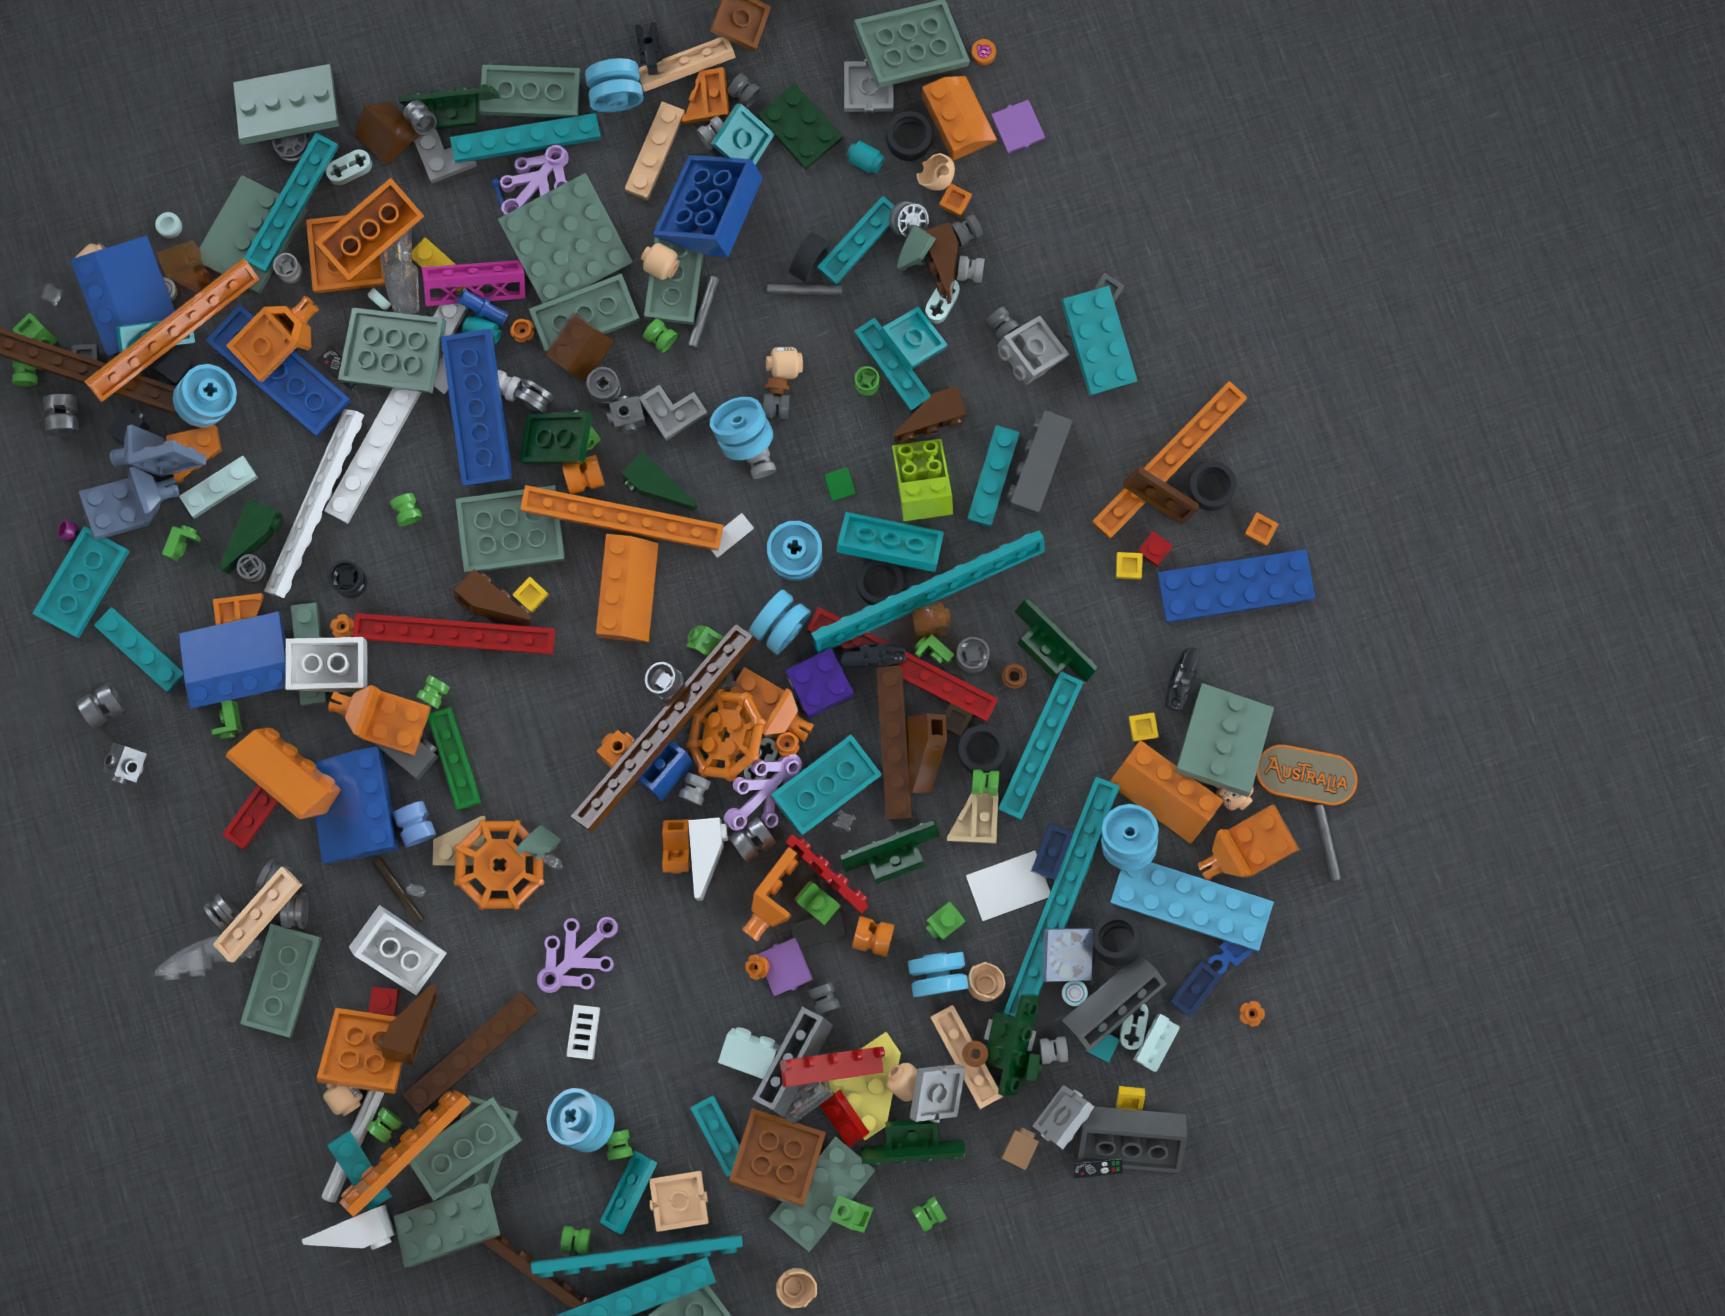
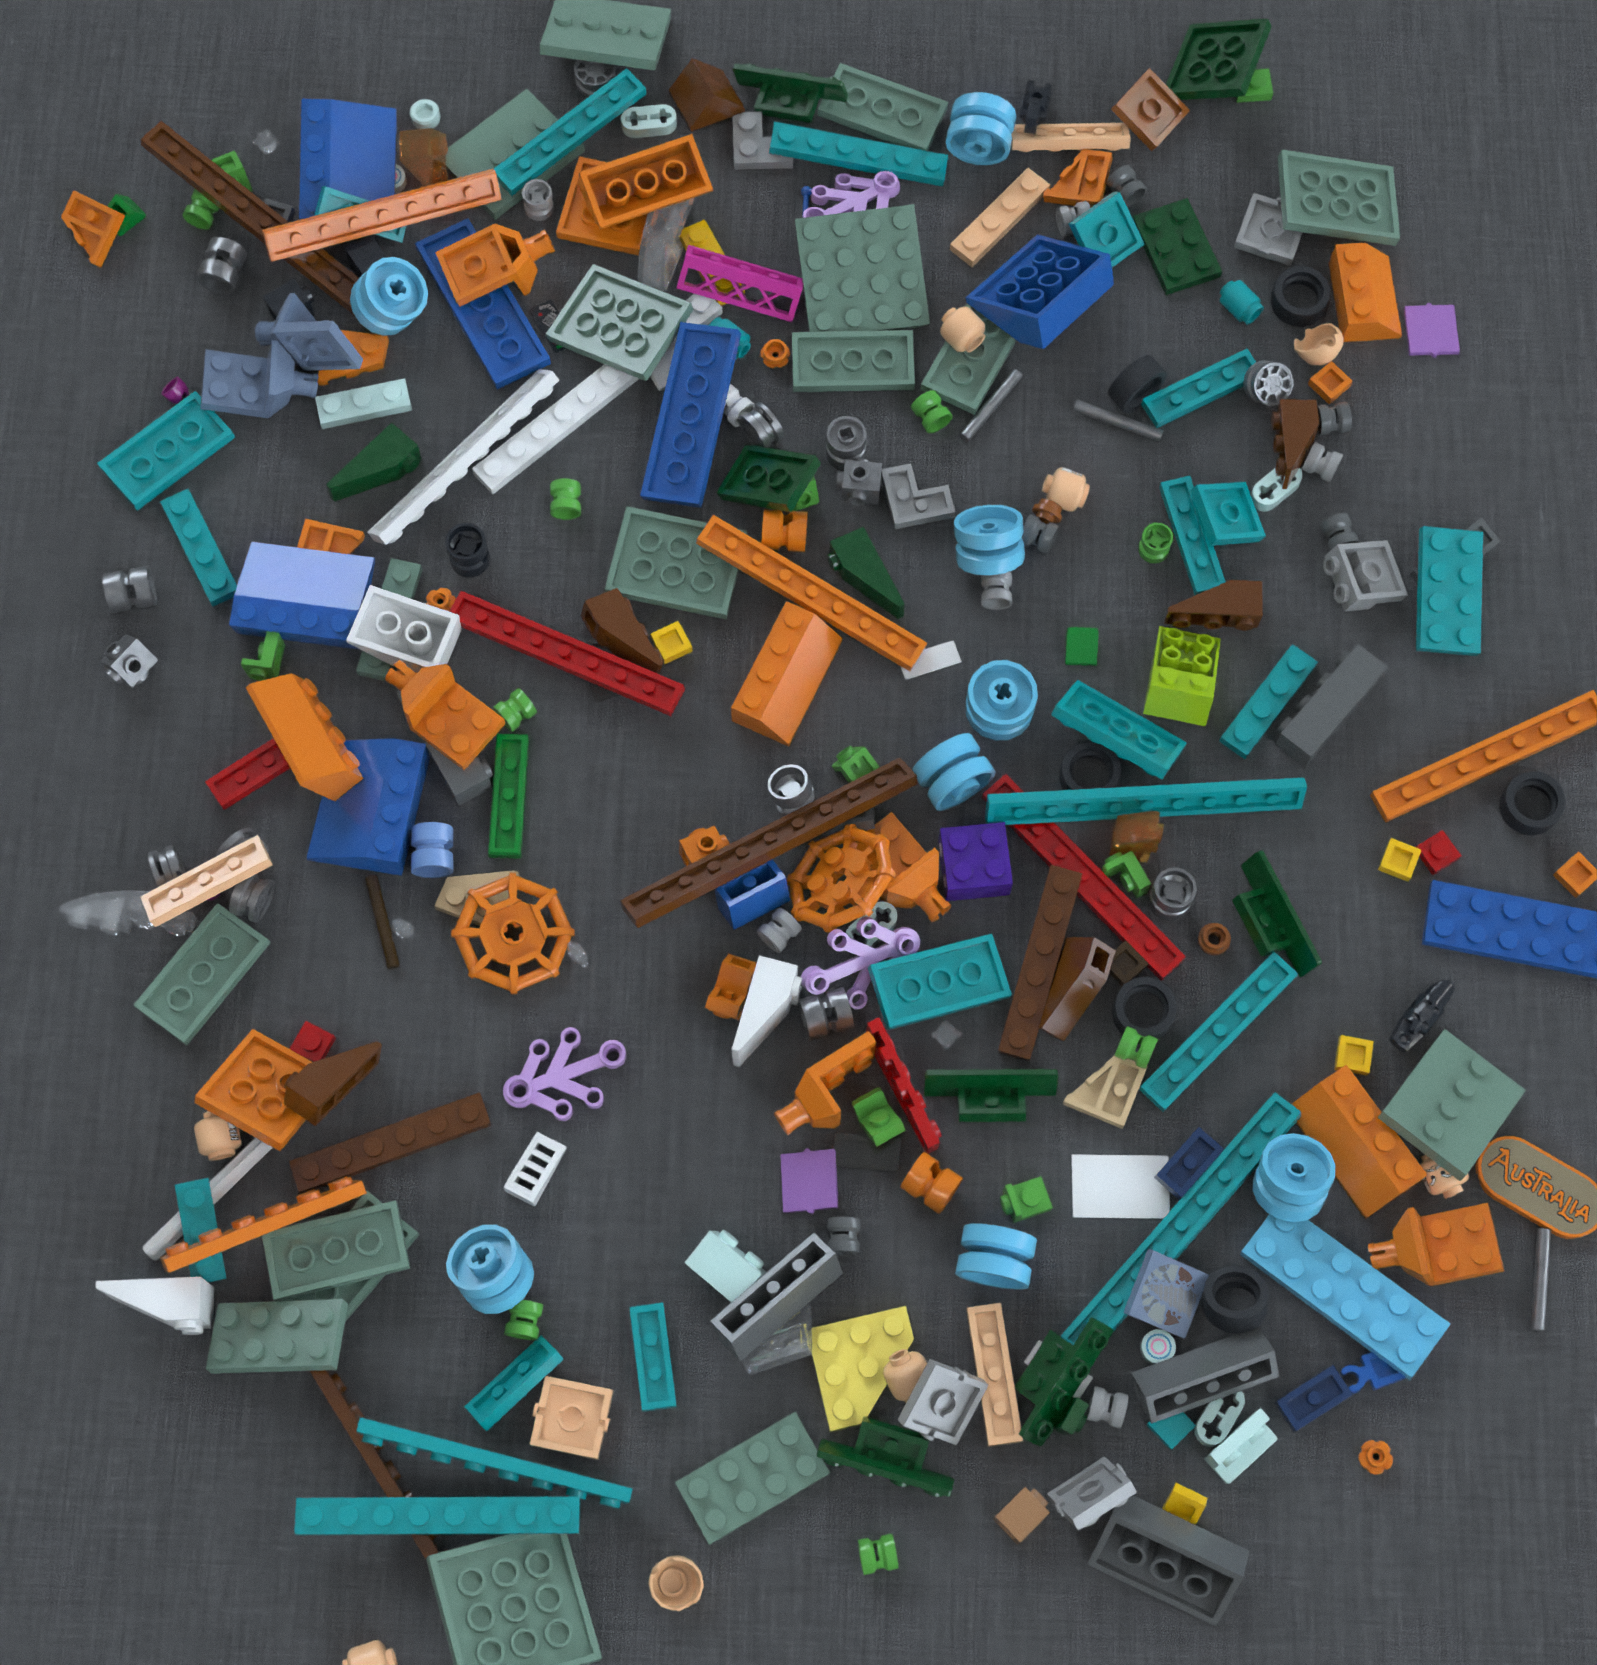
camera: 20 degrees right, 10 degrees down
(176, 542) = (290, 445): bright green bracket -> none
(254, 573) = (363, 509): flat silver wheel -> none
(379, 299) = (626, 265): light aqua tile -> none
(379, 1127) = (245, 1192): bright green wheel -> none
(397, 950) = (353, 989): white slope -> none
(419, 117) = (749, 91): flat silver wheel -> none
(482, 307) = (739, 311): blue pin -> none
(539, 842) = (568, 923): sand green slope -> none
(579, 347) = (834, 388): reddish brown slope -> none
(581, 1243) = (425, 1416): bright green wheel -> none
(762, 964) = (782, 1171): orange plate -> none
(777, 1158) = (713, 1408): dark orange plate -> none
(784, 738) = (913, 908): orange plate -> none
(832, 1066) = (823, 1317): red hinge -> none
(844, 1118) = (814, 1393): red plate -> none
(851, 1214) = (780, 1515): bright green bracket -> none
(873, 655) = (1053, 850): black hinge -> none
(915, 248) = (1265, 415): sand green slope -> none
(966, 1053) = (997, 1377): dark orange plate -> none
(983, 52) = (1418, 237): orange tile -> none
(985, 982) = (1051, 1290): light nougat hair -> none
(1098, 1168) = (1112, 1579): black sticker -> none
(1160, 495) = (1467, 788): reddish brown plate -> none

